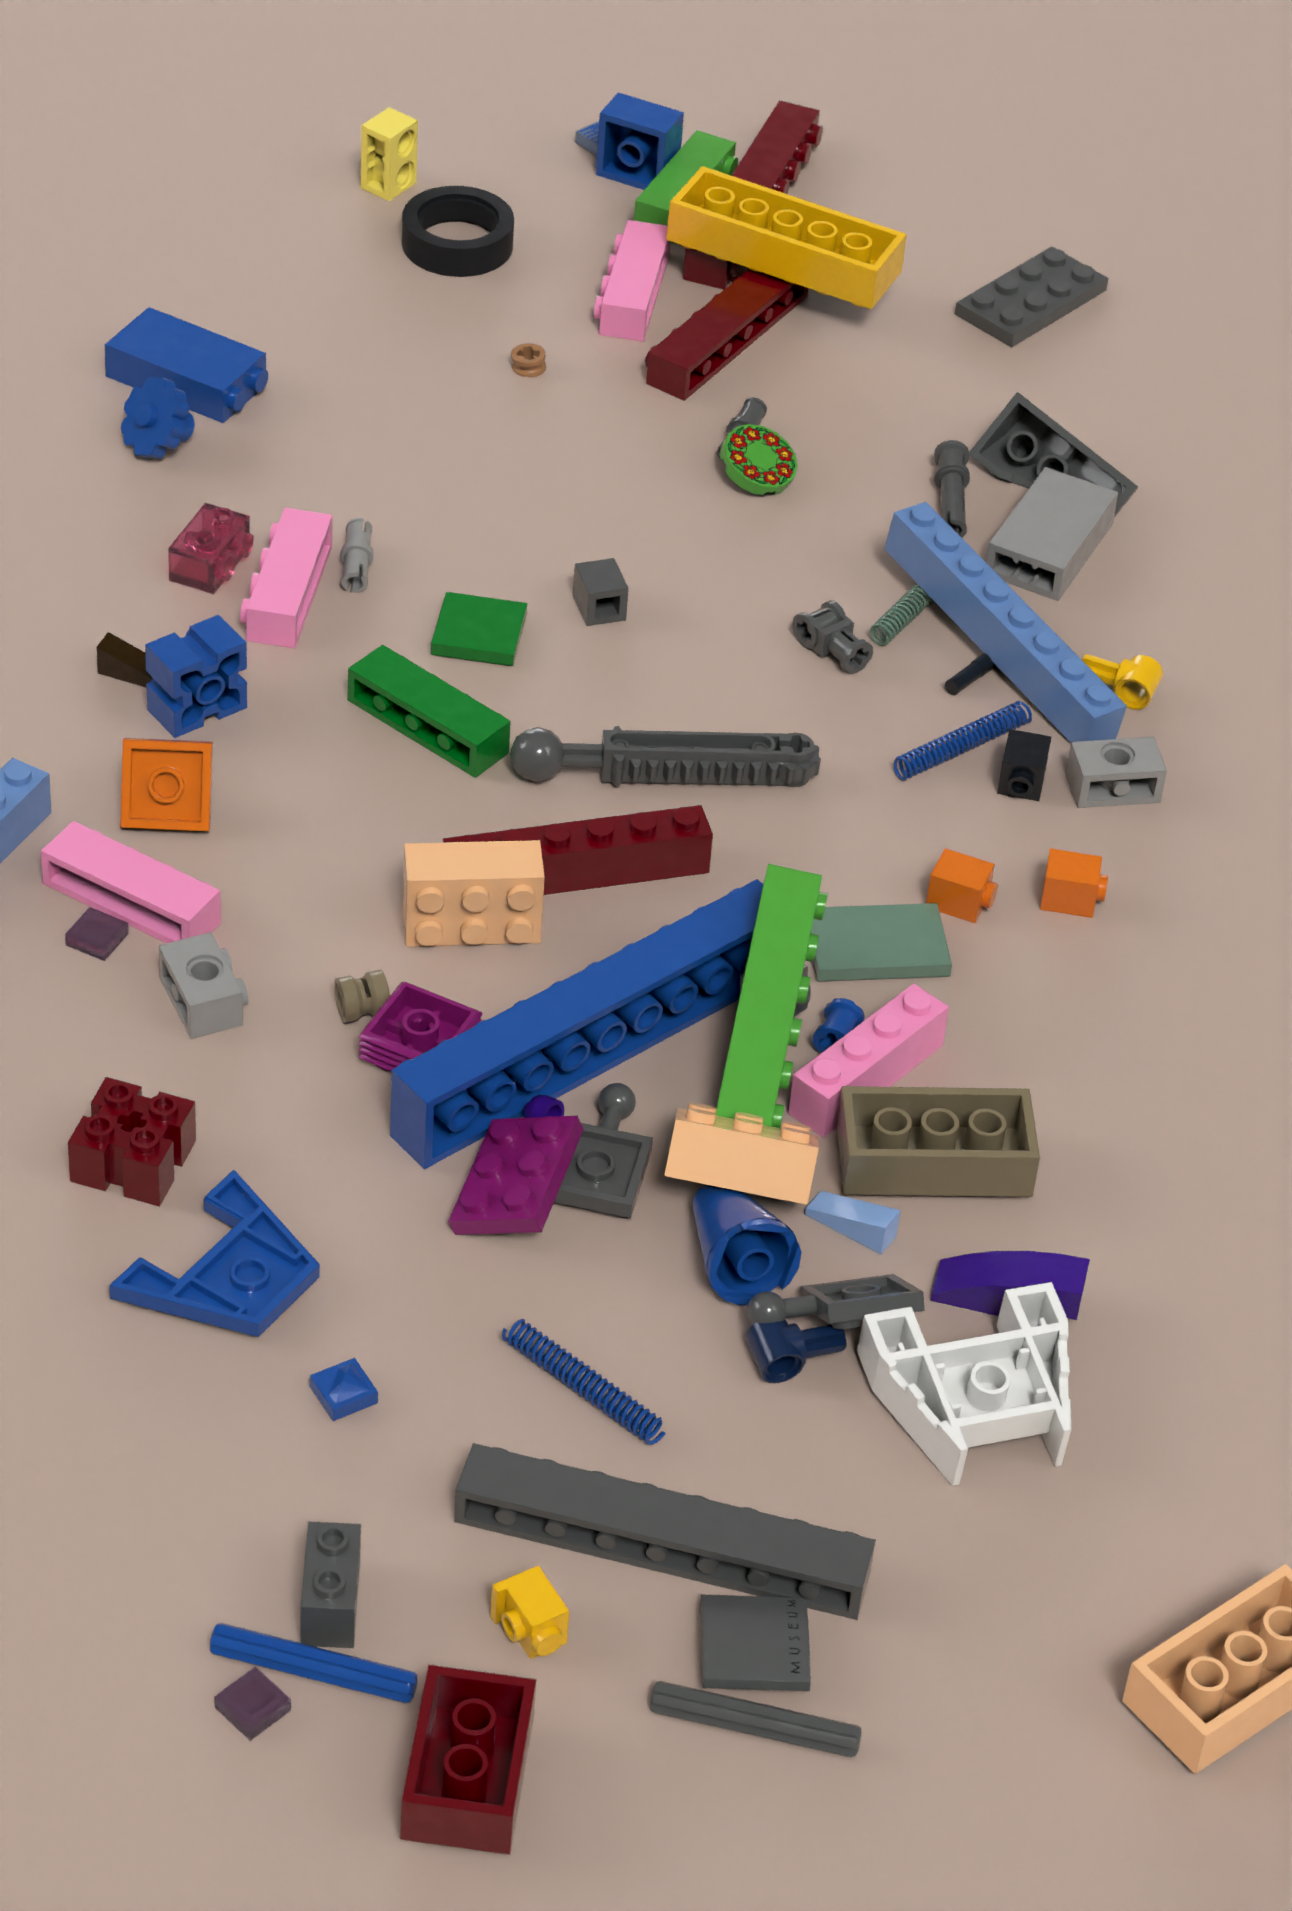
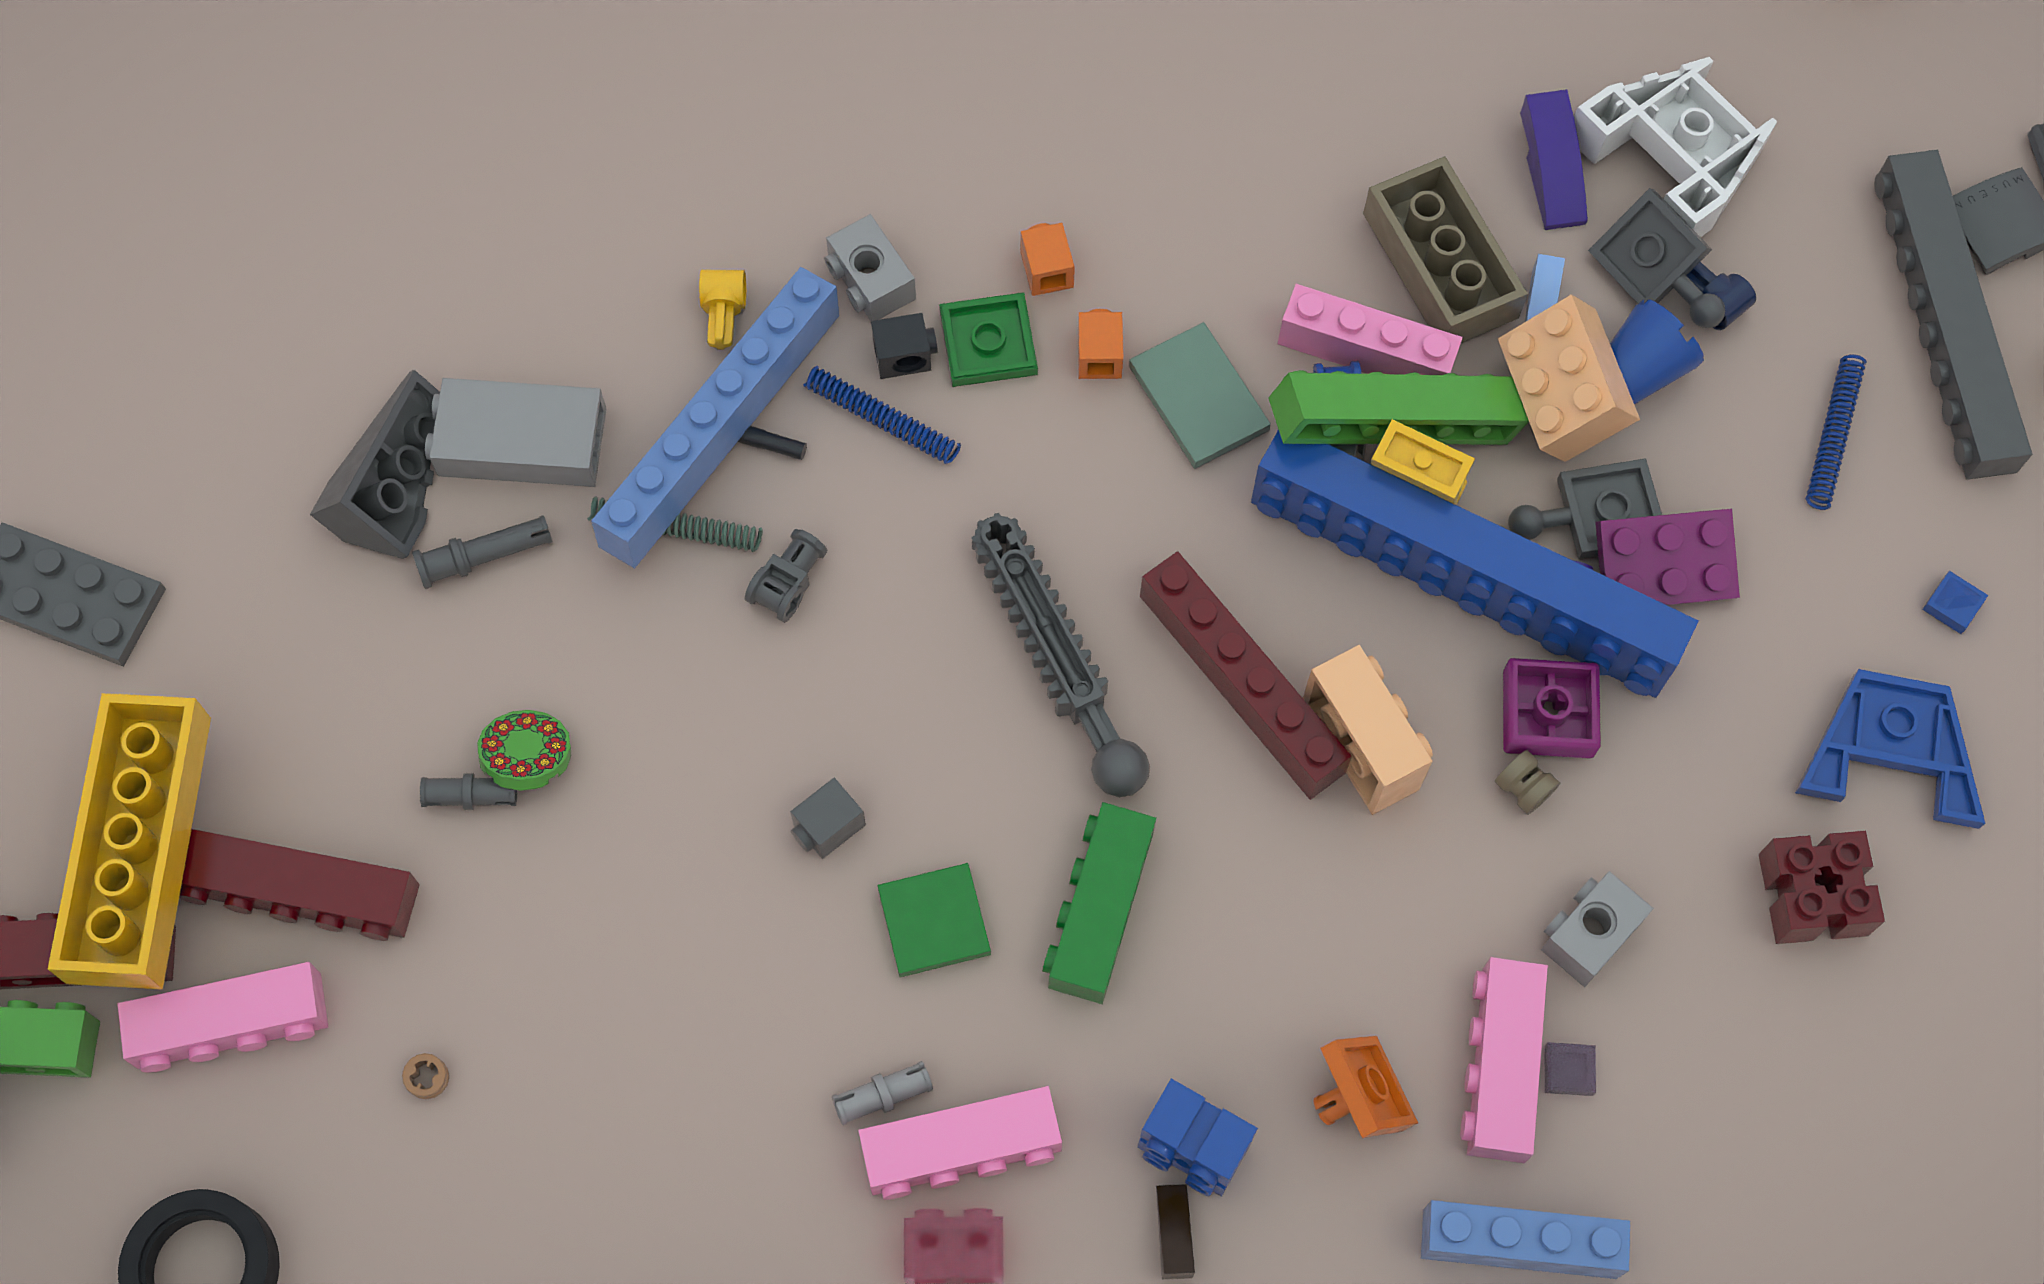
camera: 110 degrees left, 25 degrees up
(692, 1003) = (1423, 461): none -> yellow panel
(1009, 831) = (988, 339): none -> green tile

